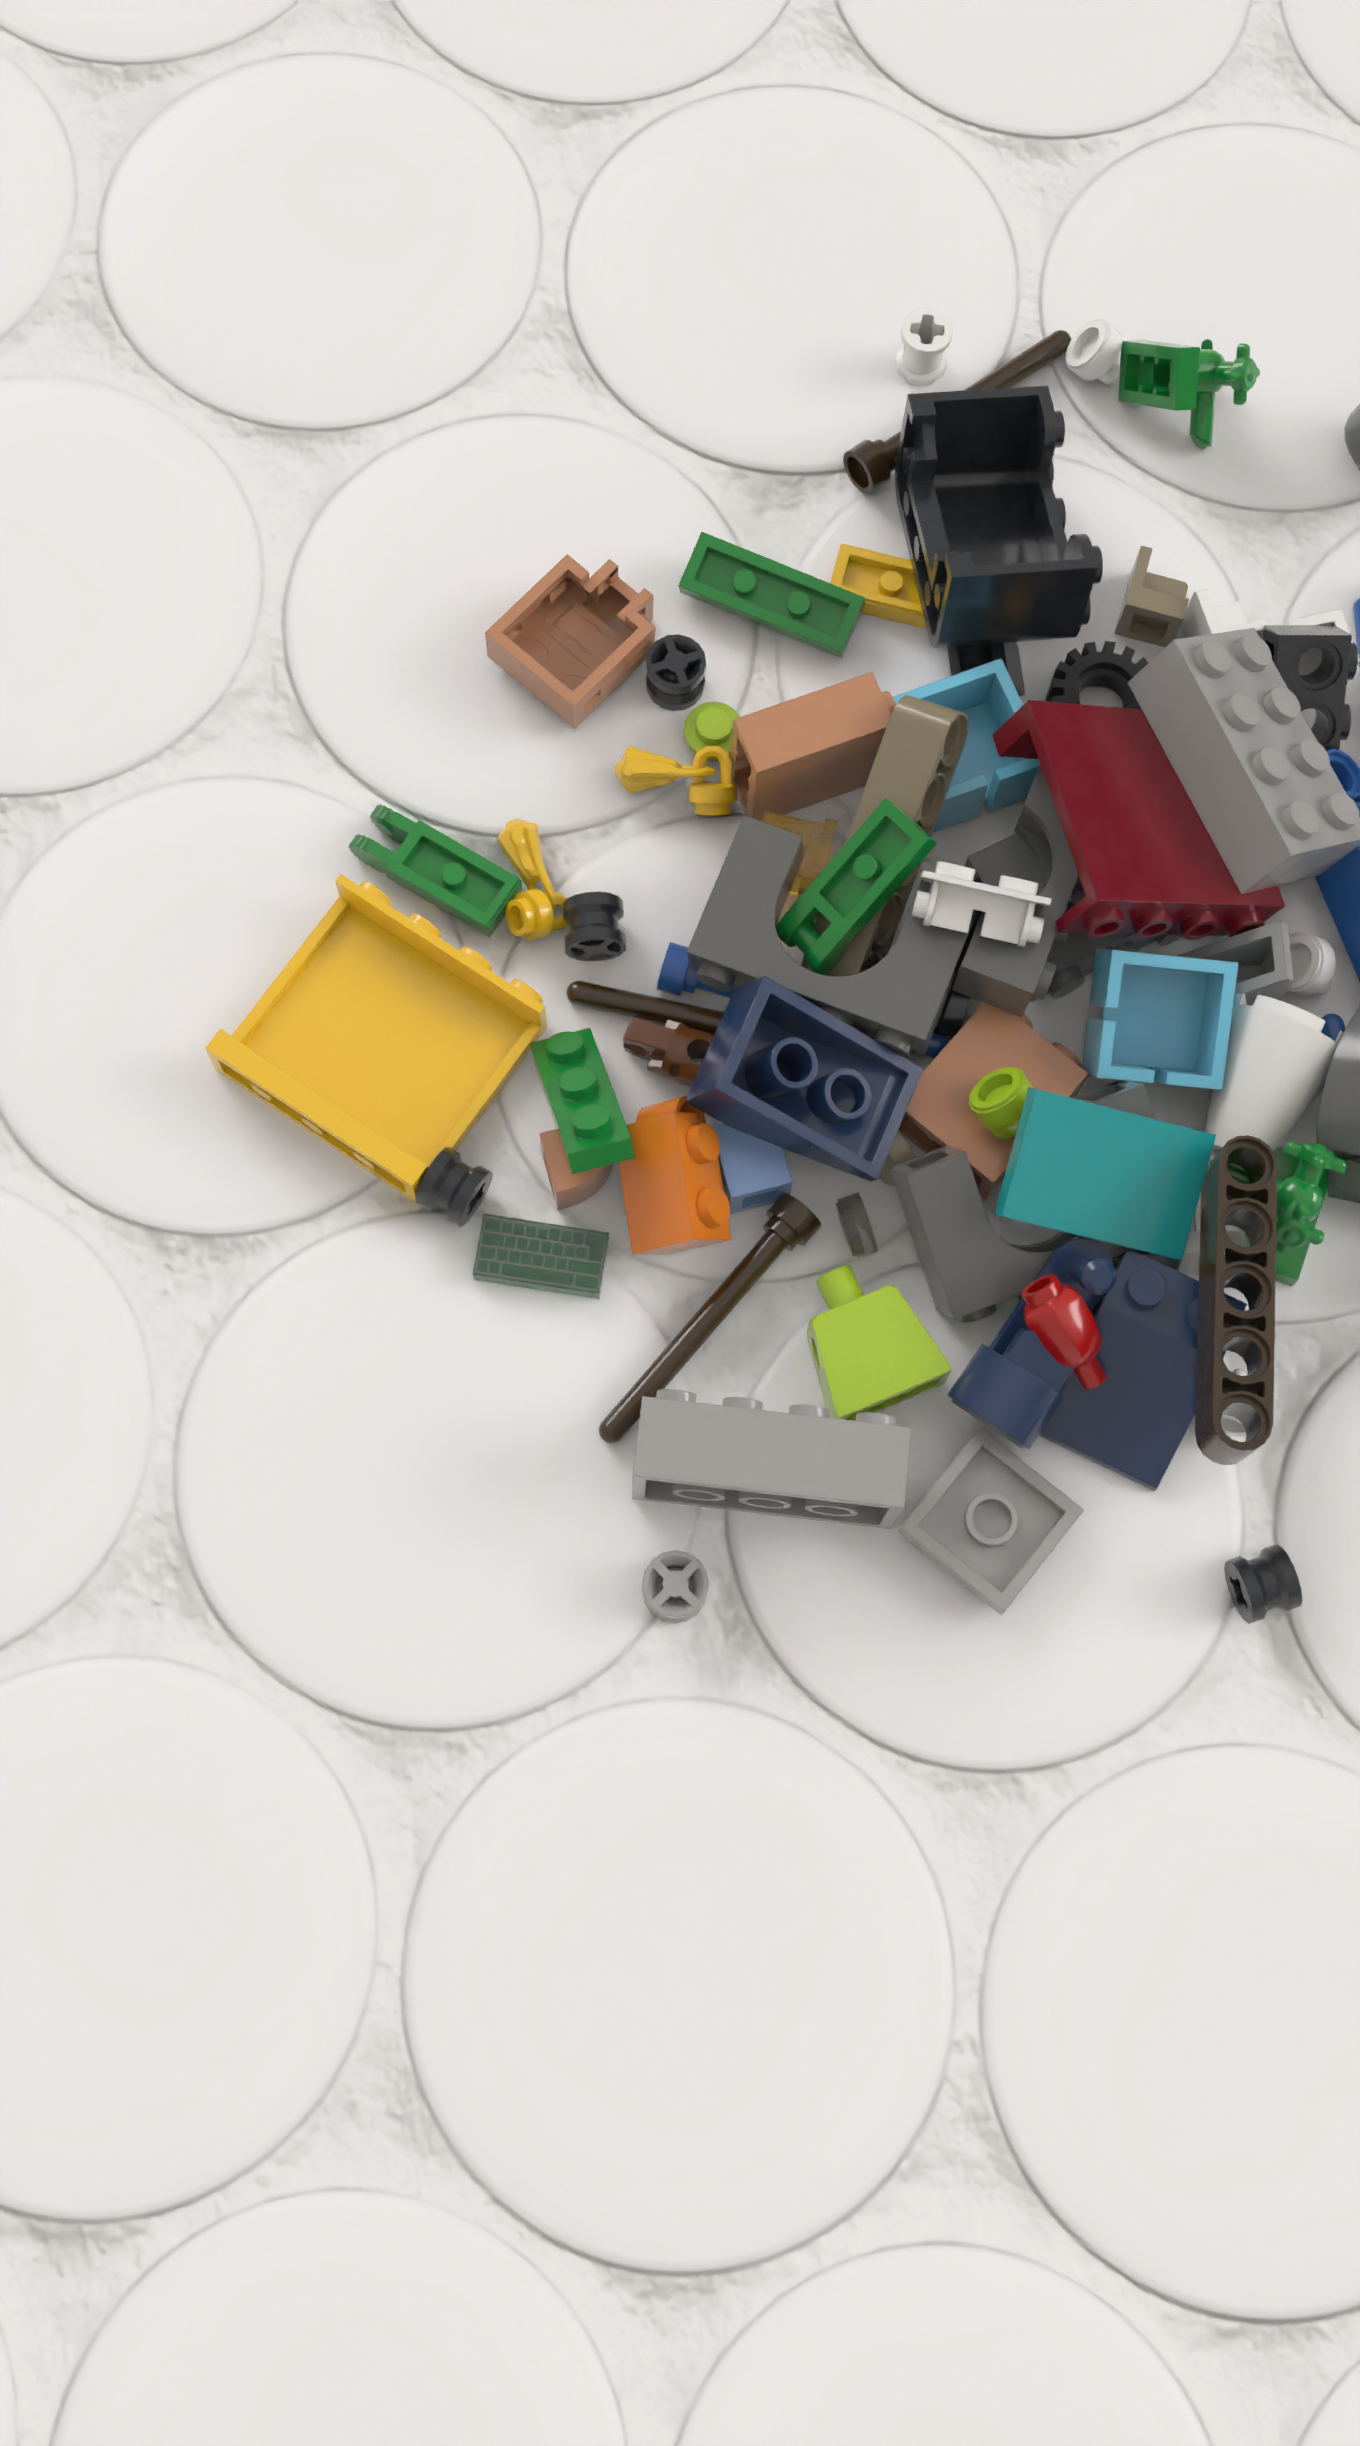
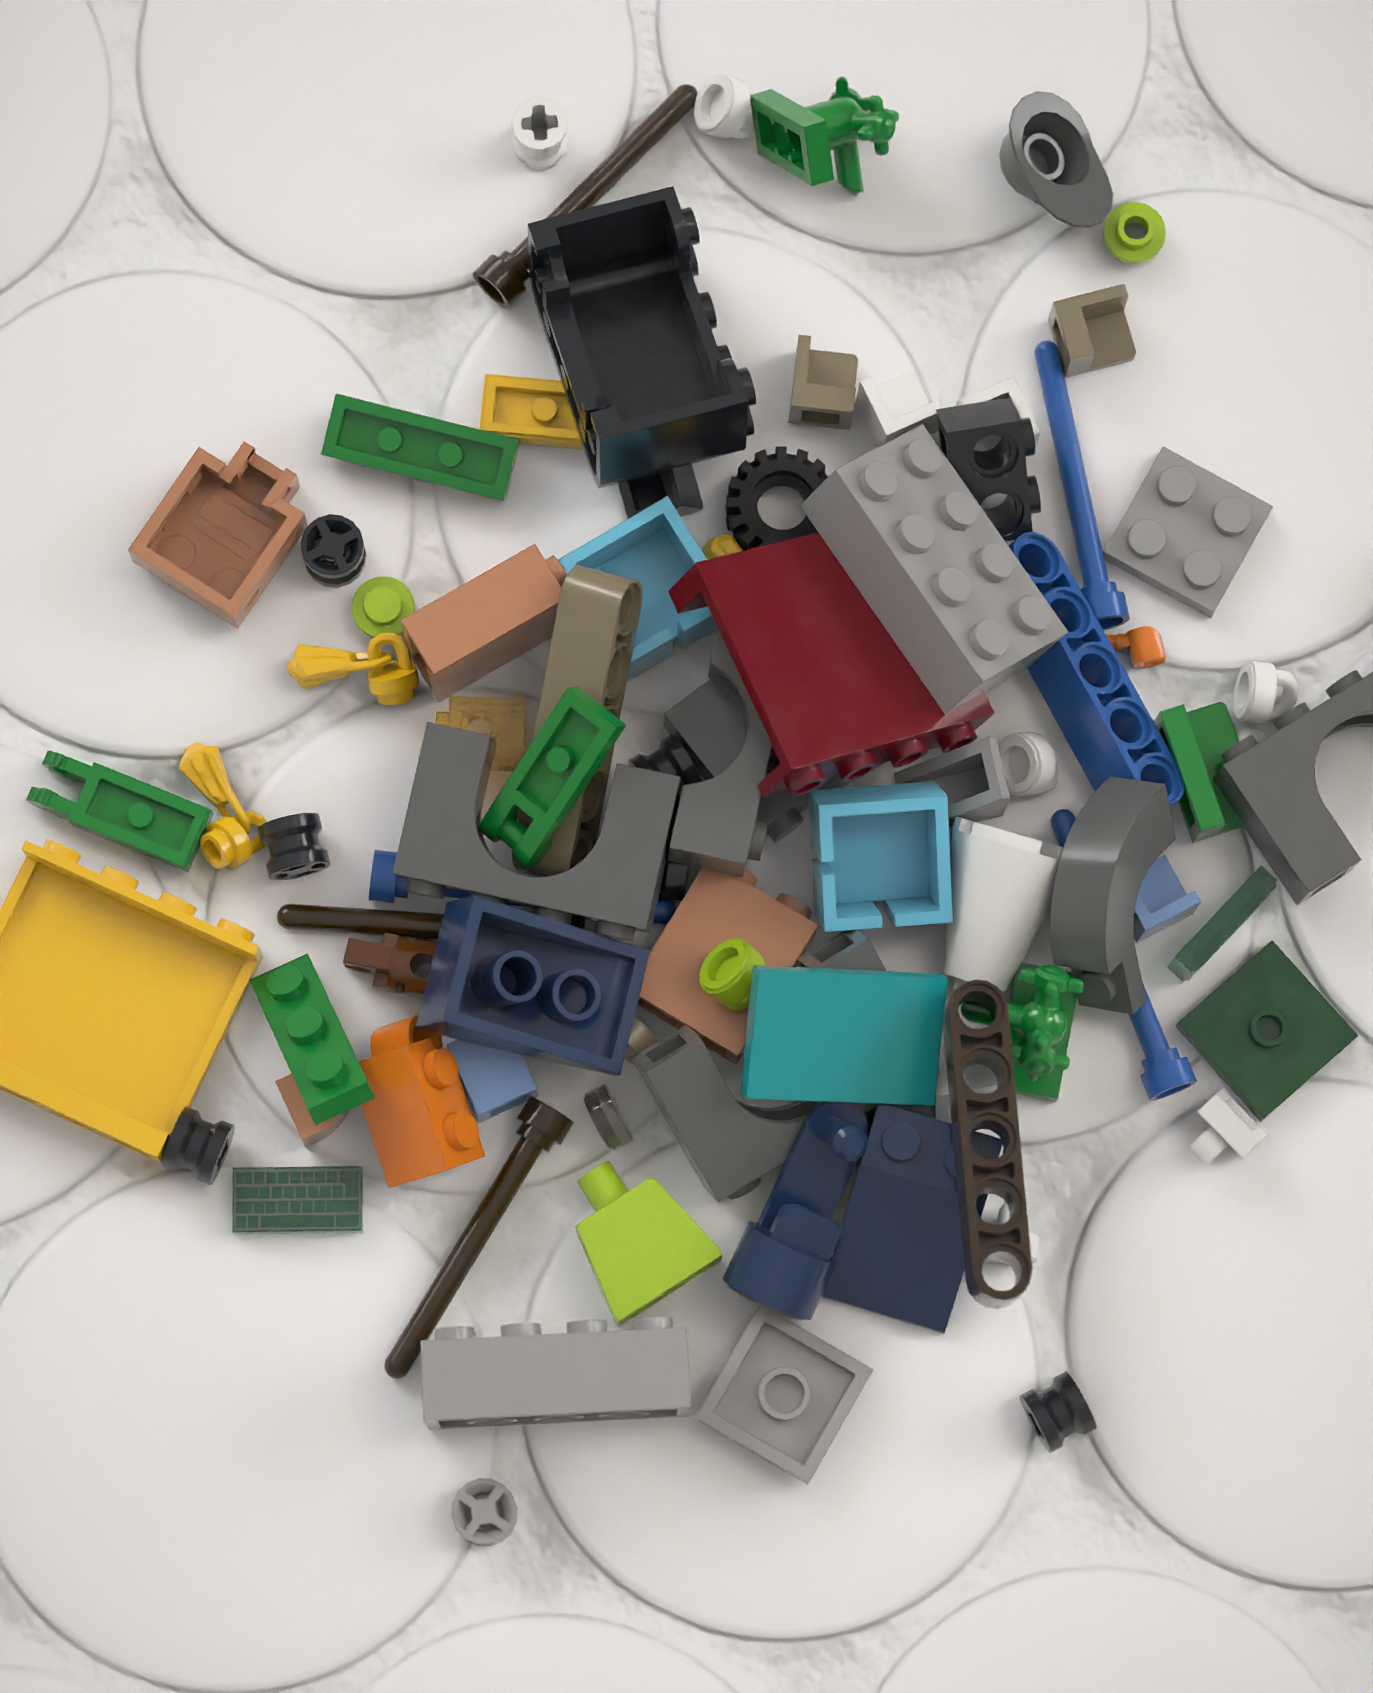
camera: 10 degrees left, 5 degrees up
(1006, 907) = (654, 778): white hinge -> none
(1064, 1327) = (825, 1196): red plant -> none

